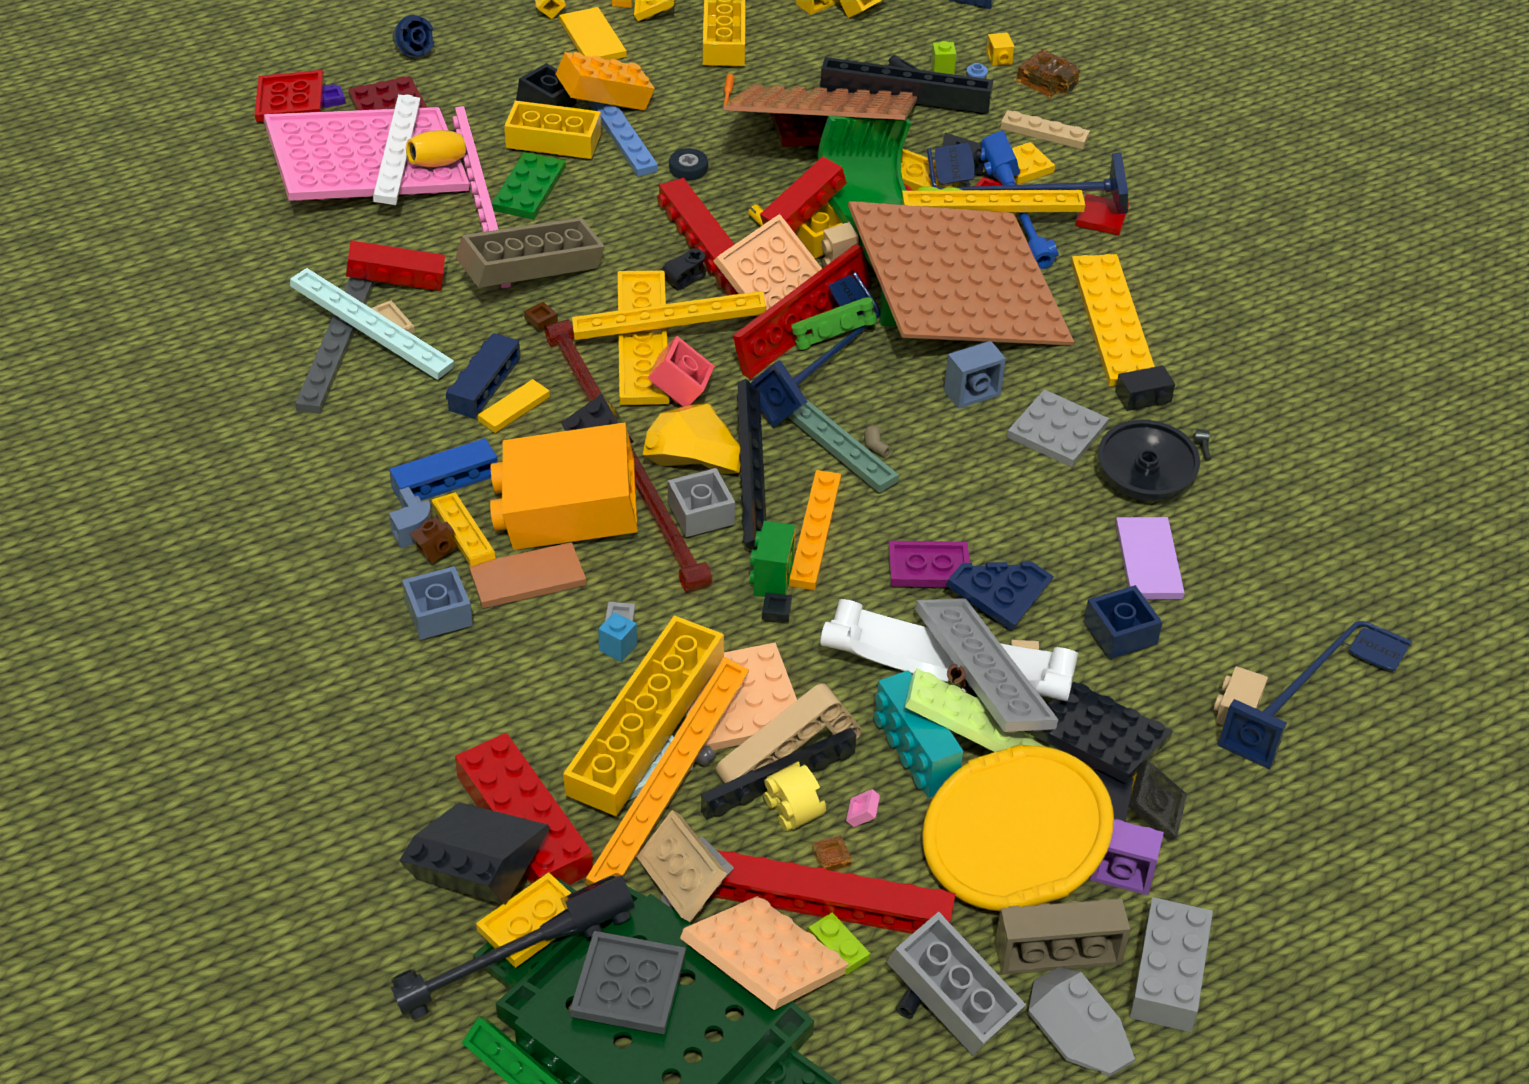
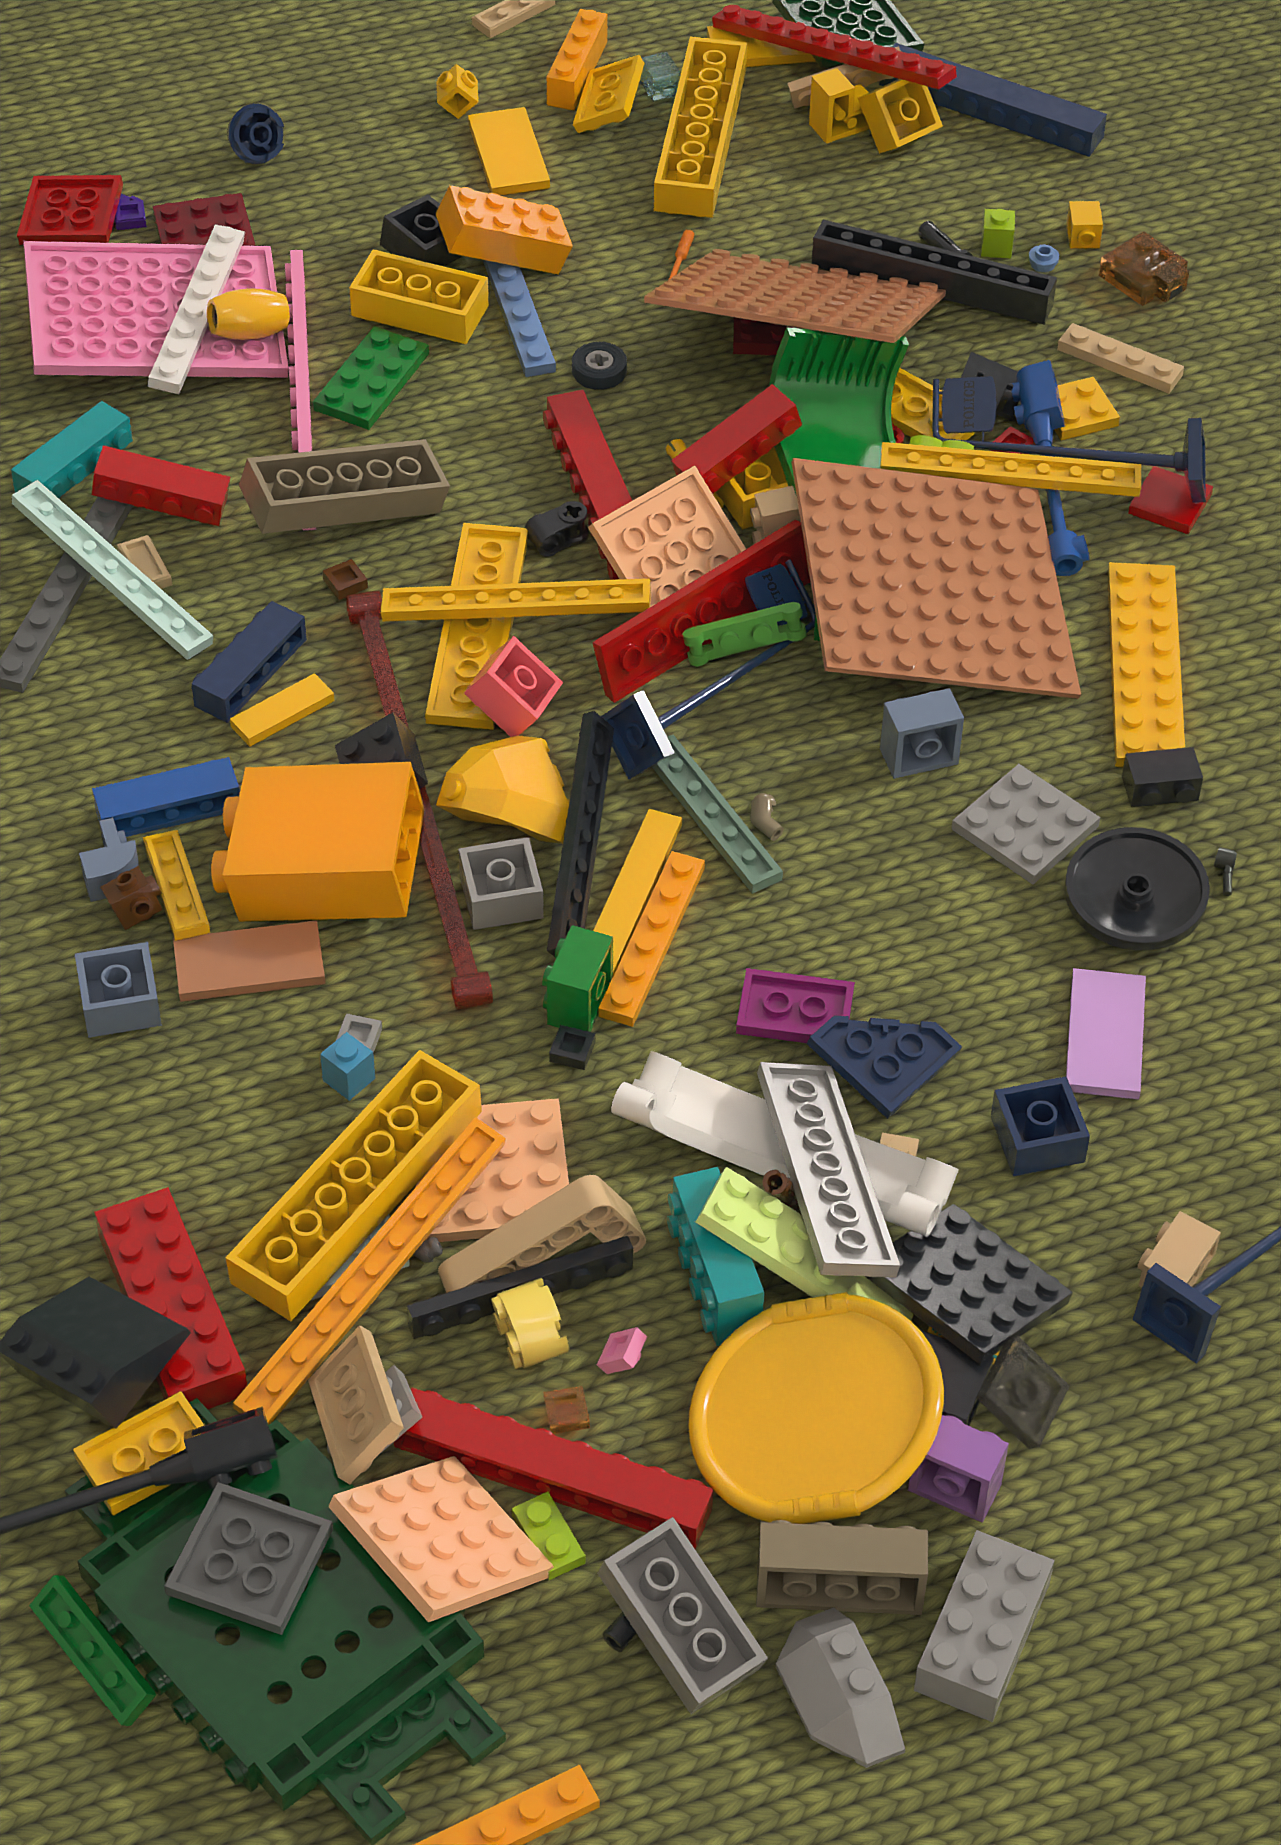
camera: 10 degrees right, 5 degrees up
(326, 249) = (74, 451): none -> teal brick
(797, 487) = (637, 879): none -> yellow tile

